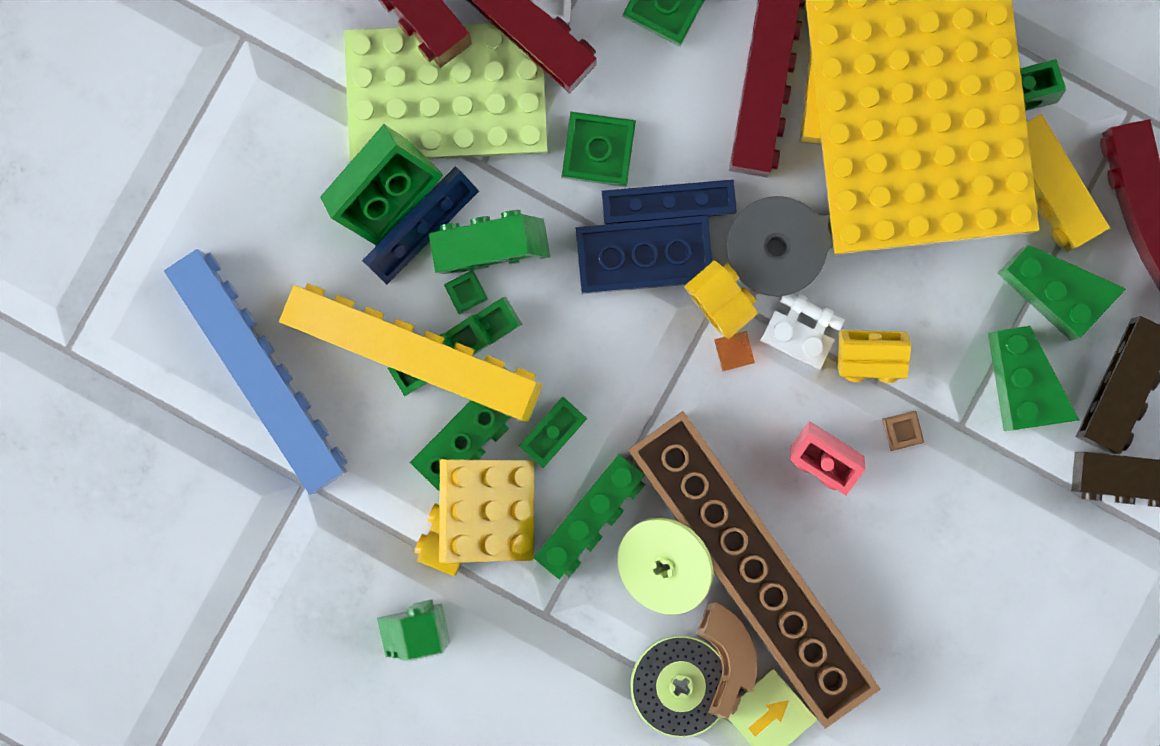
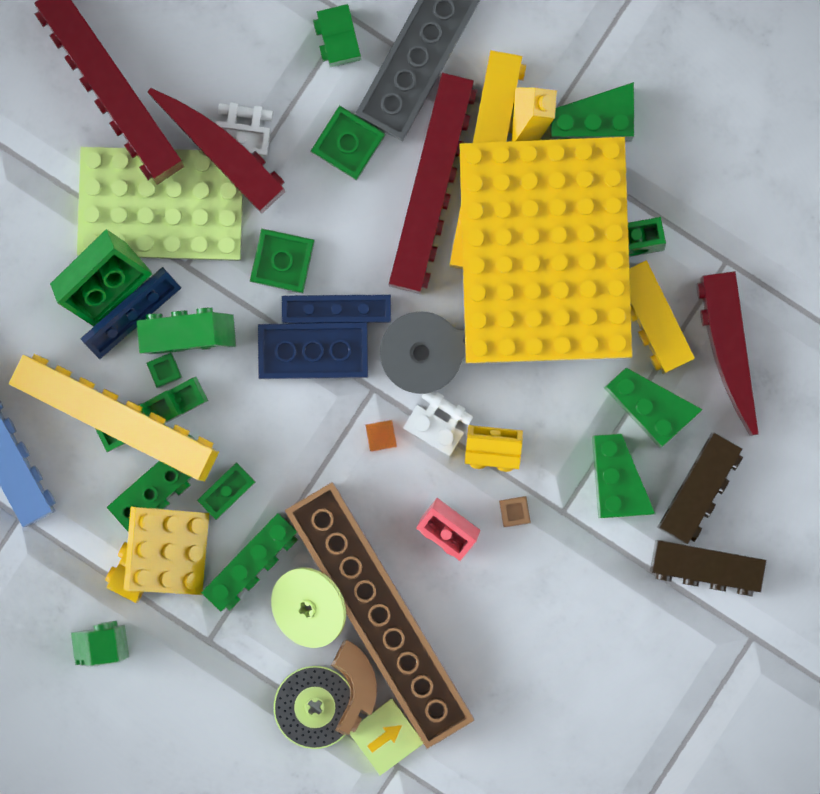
camera: 10 degrees right, 0 degrees up
(722, 299) = (372, 393): yellow brick -> none

